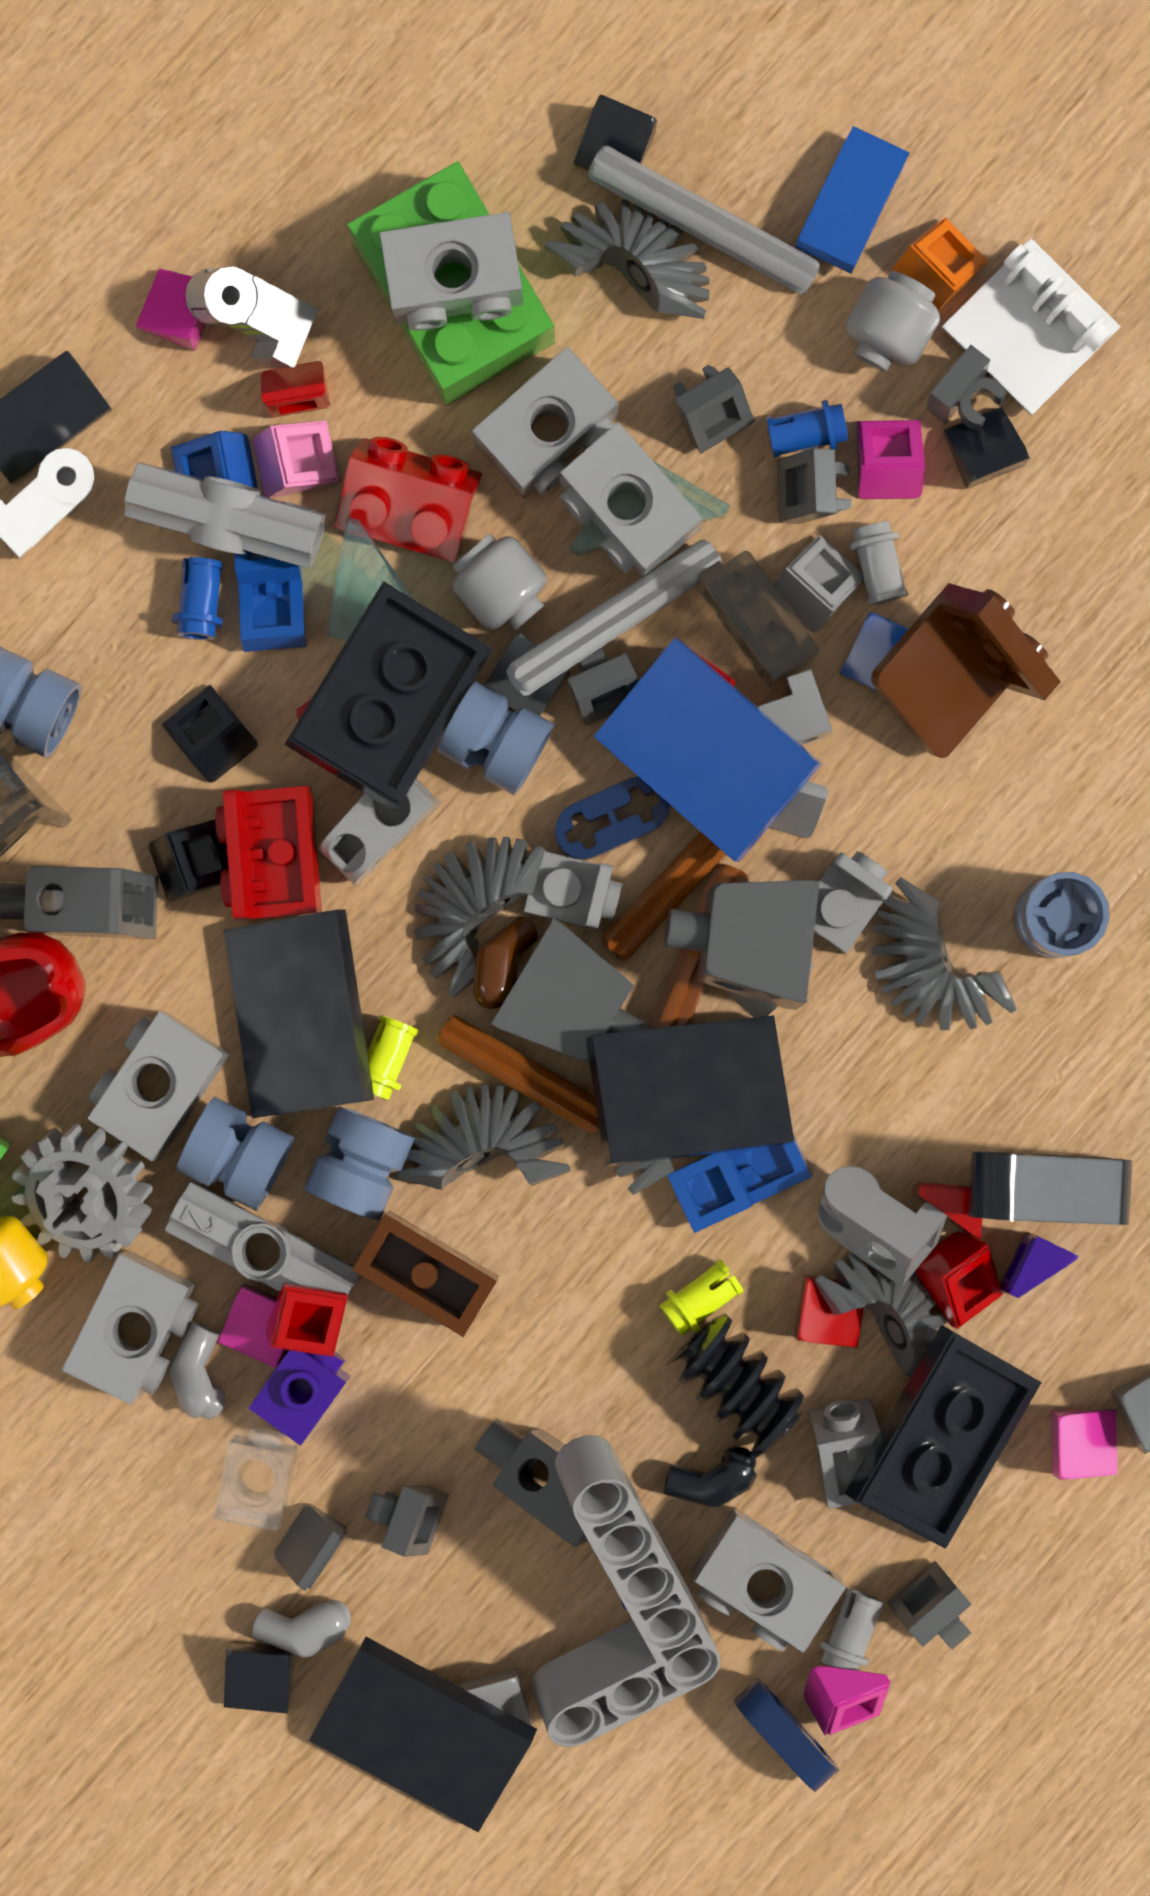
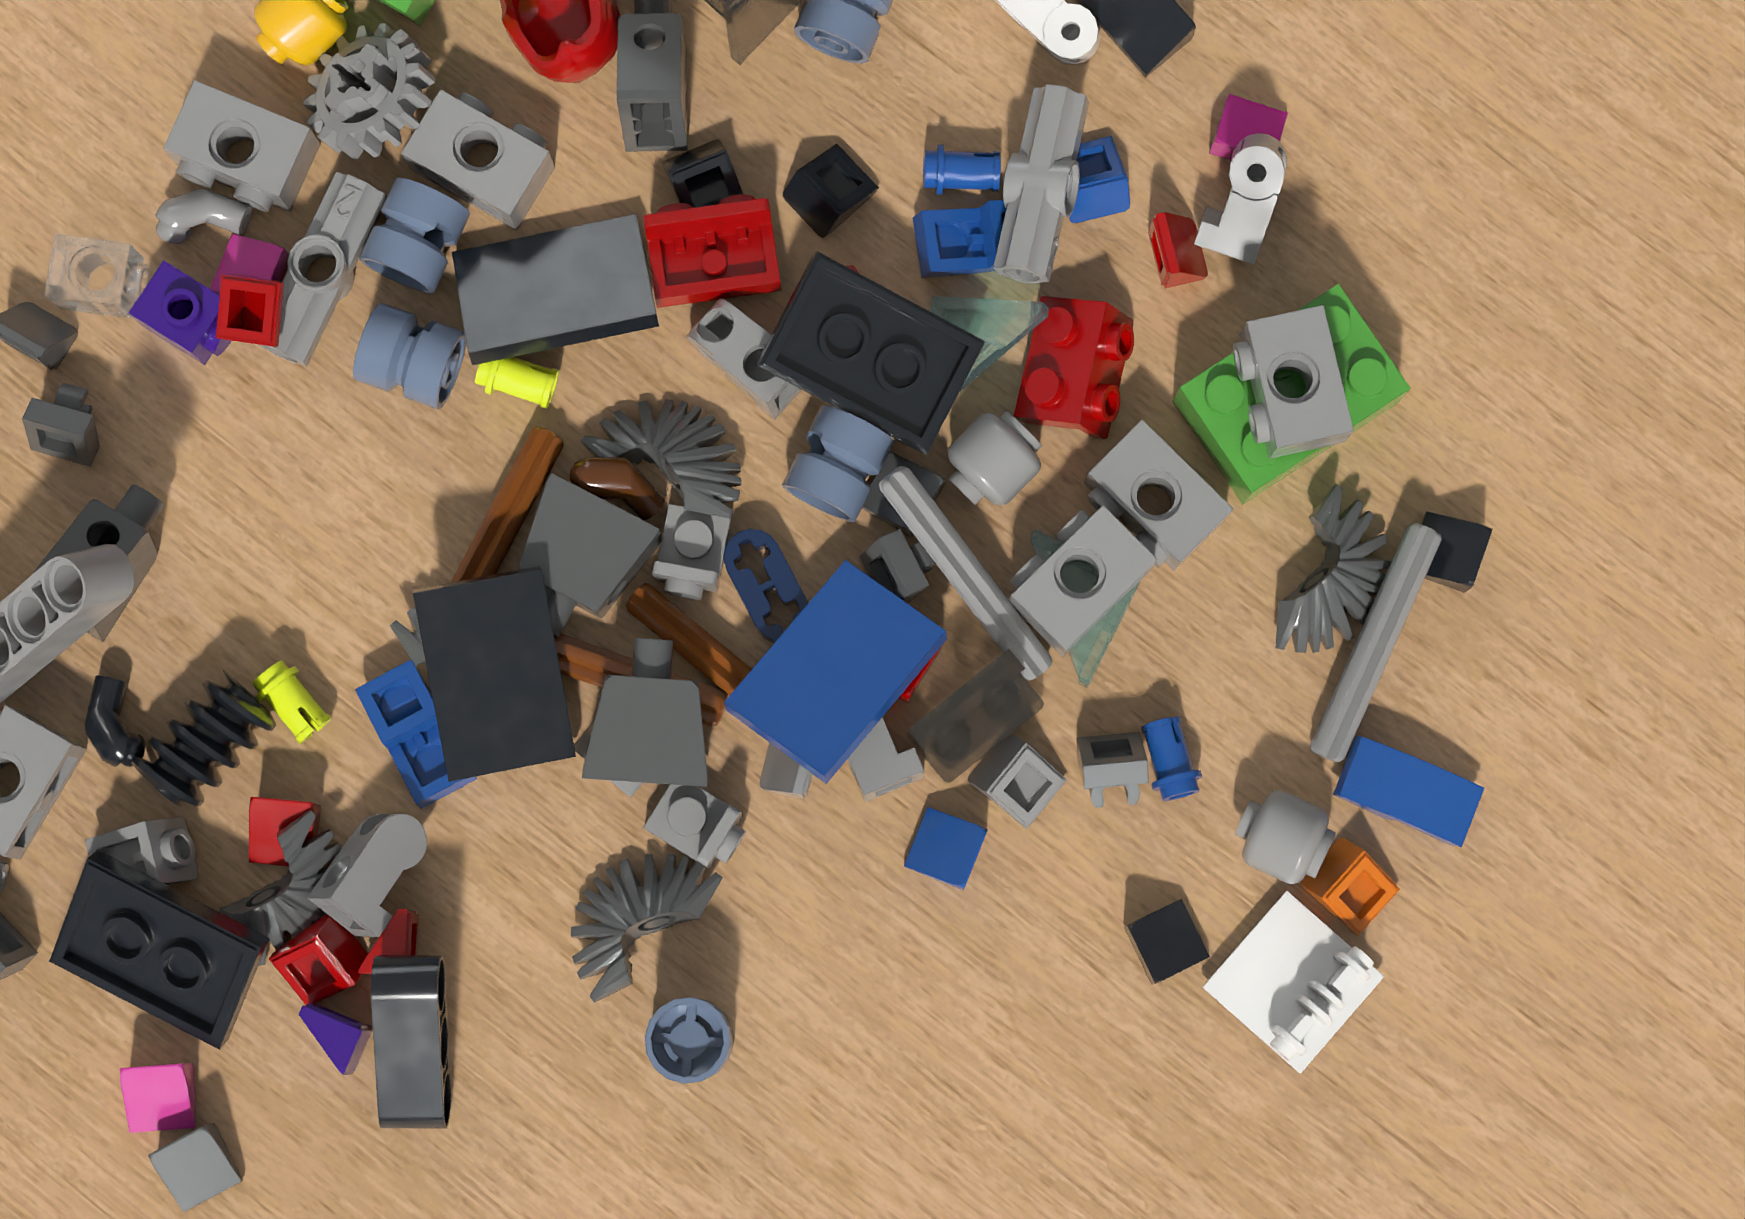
camera: 85 degrees right, 5 degrees down
(295, 458) = (1108, 257): bright pink slope -> none
(425, 1273) = (303, 425): reddish brown brick -> none
(479, 1137) = (446, 475): dark grey hair -> none
(713, 408) = (1184, 661): dark grey tile -> none
(879, 562) = (1040, 839): light grey pin -> none
(890, 459) = (1148, 845): dark pink slope -> none
(958, 665) = (934, 919): reddish brown bracket -> none
(961, 385) = (1225, 910): dark grey tile -> none

